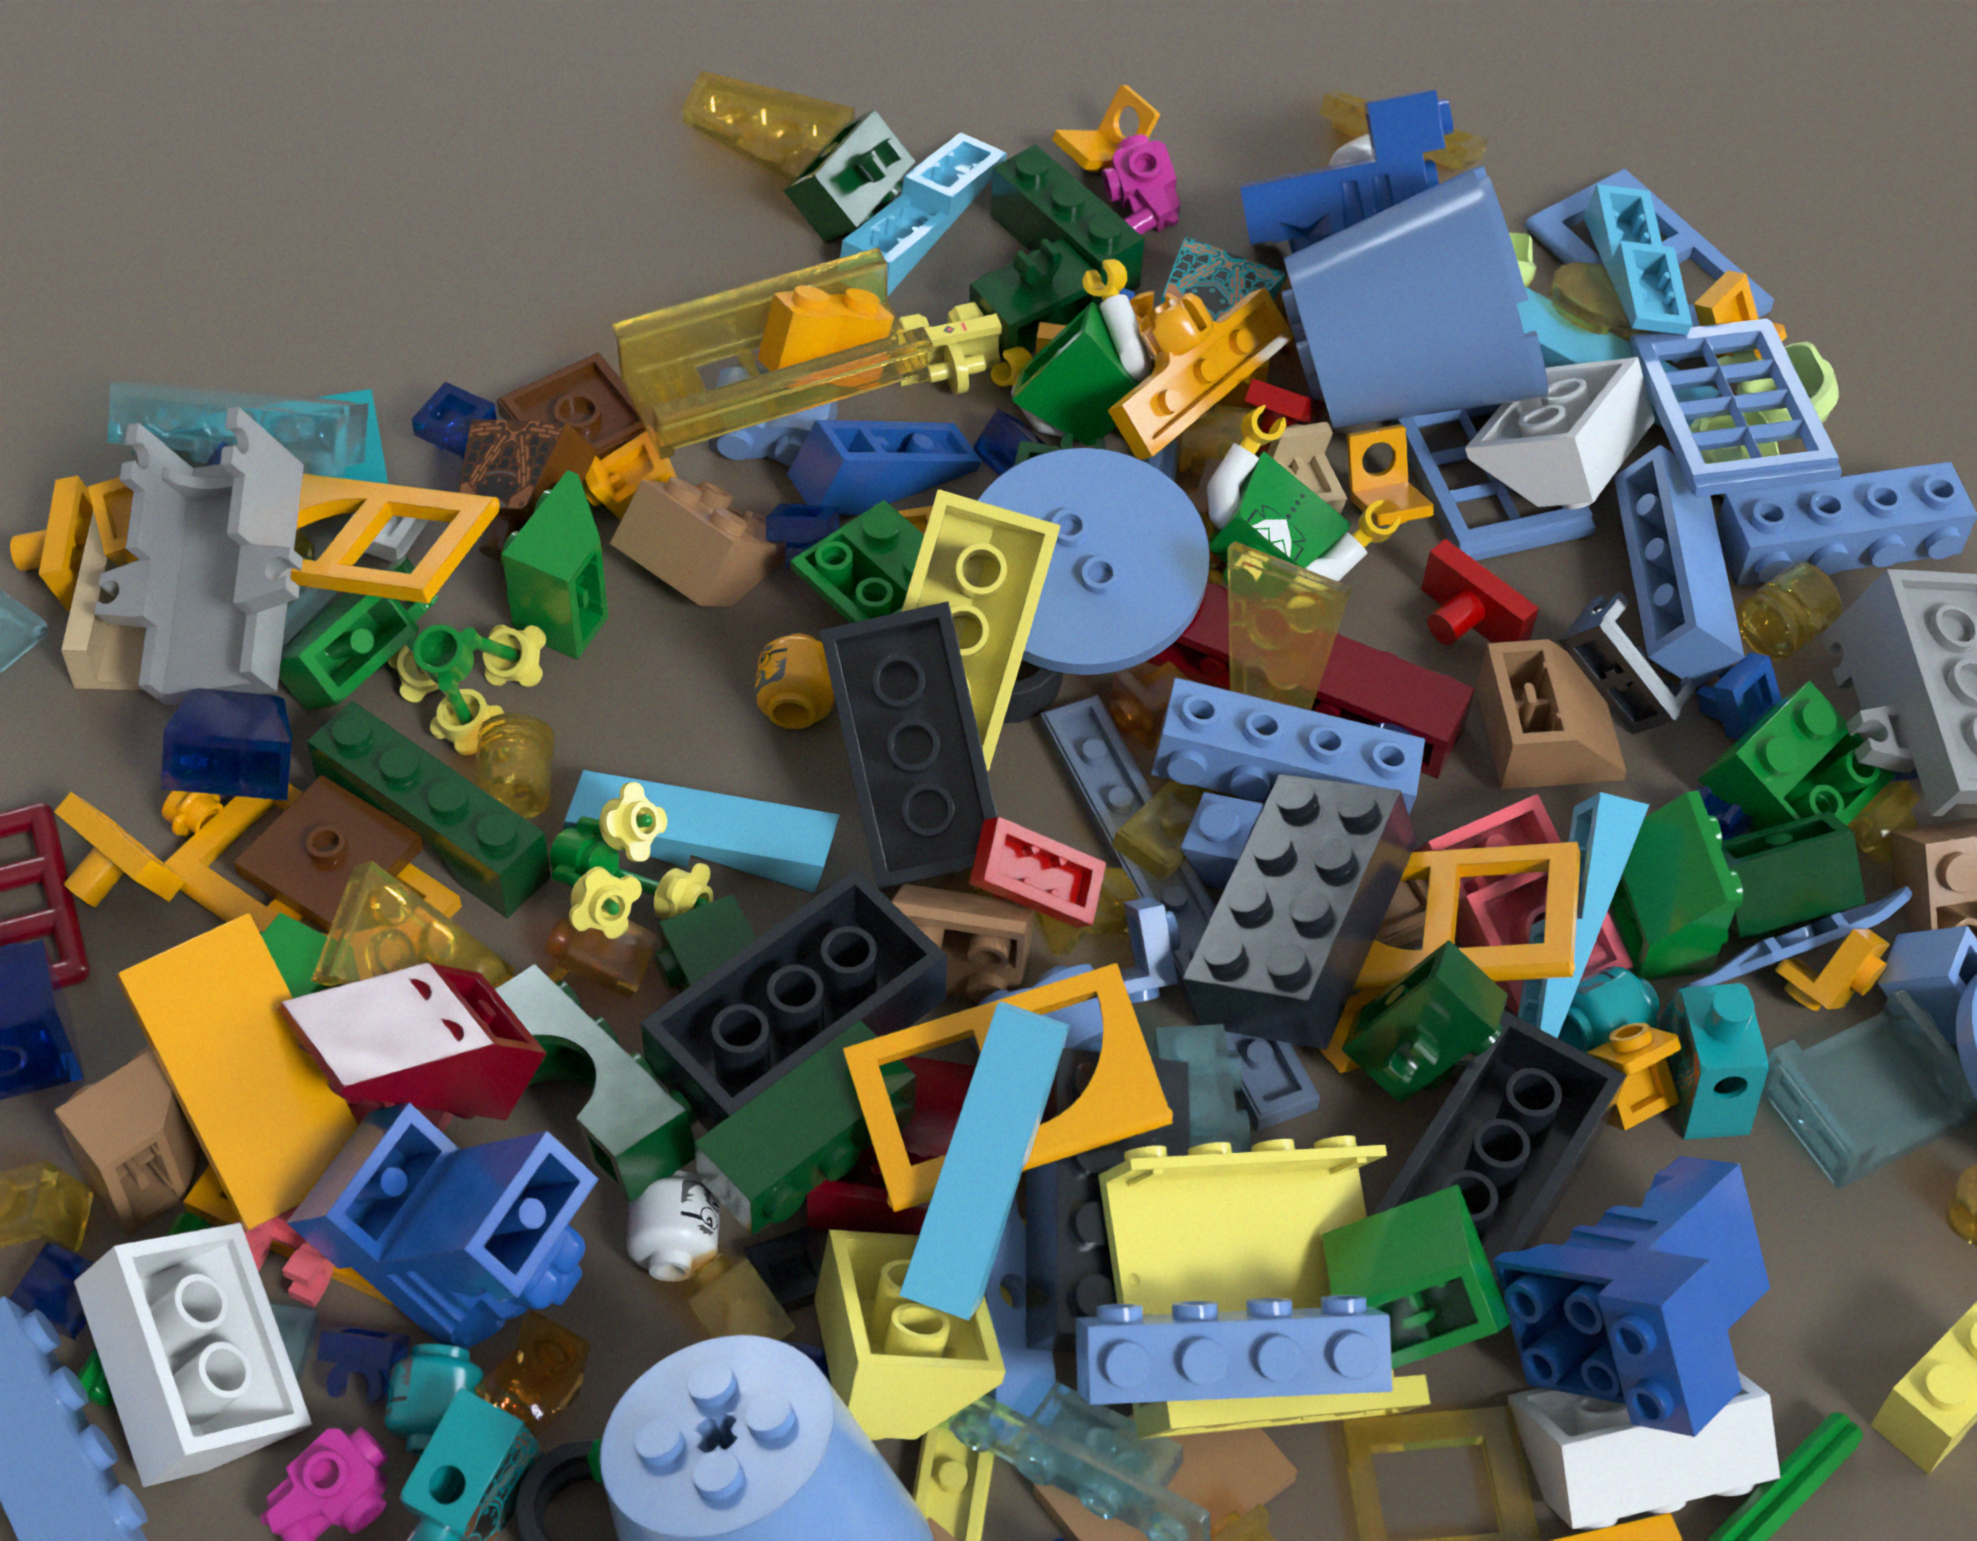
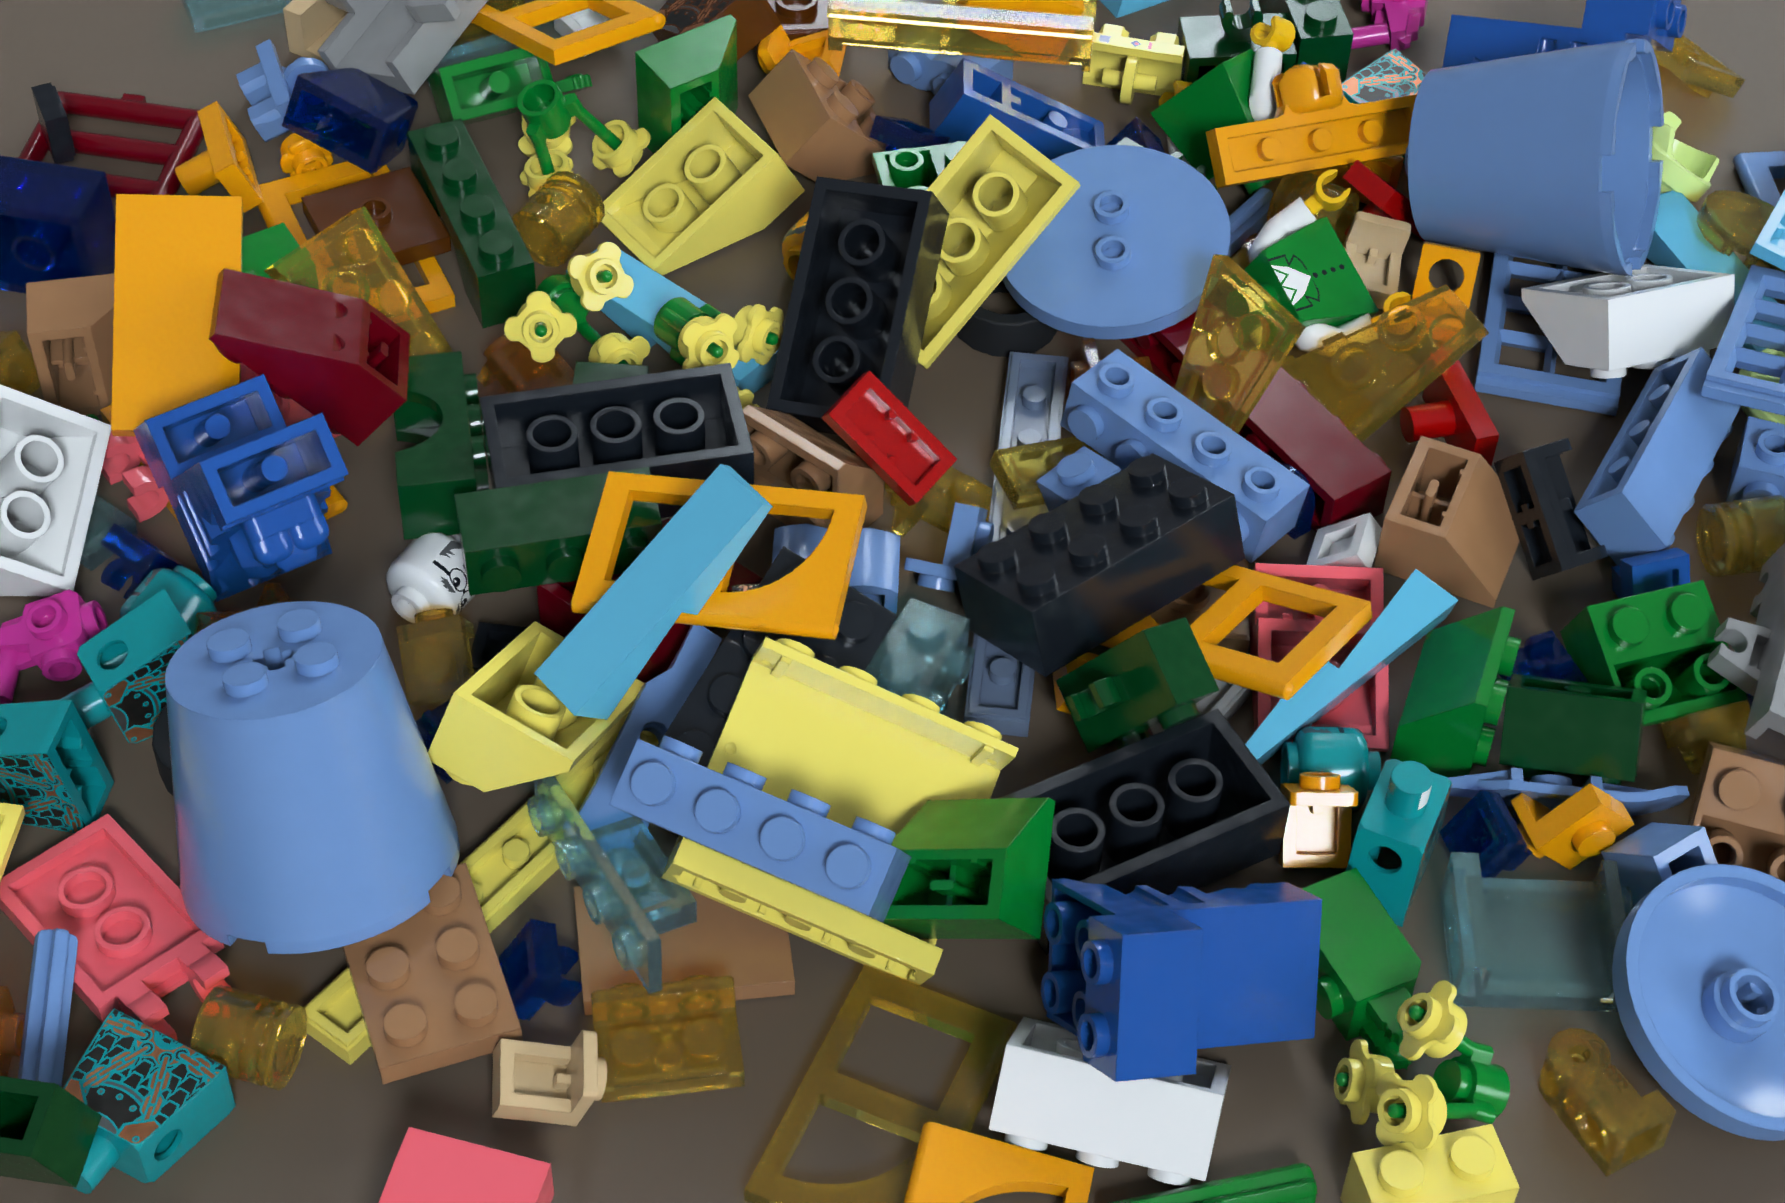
camera: 30 degrees right, 5 degrees down
(93, 734) = (270, 87): none -> medium blue hips
(633, 673) = (700, 192): none -> light yellow slope
(798, 852) = (713, 338): none -> light yellow plant
(1405, 570) = (1389, 362): none -> clear yellow wing
(1472, 784) = (1346, 543): none -> white plate
(1781, 1011) = (1487, 829): none -> clear blue tile
(1781, 1197) = (1362, 965): none -> green hinge
(1914, 1264) = (1419, 1107): none -> light yellow plant

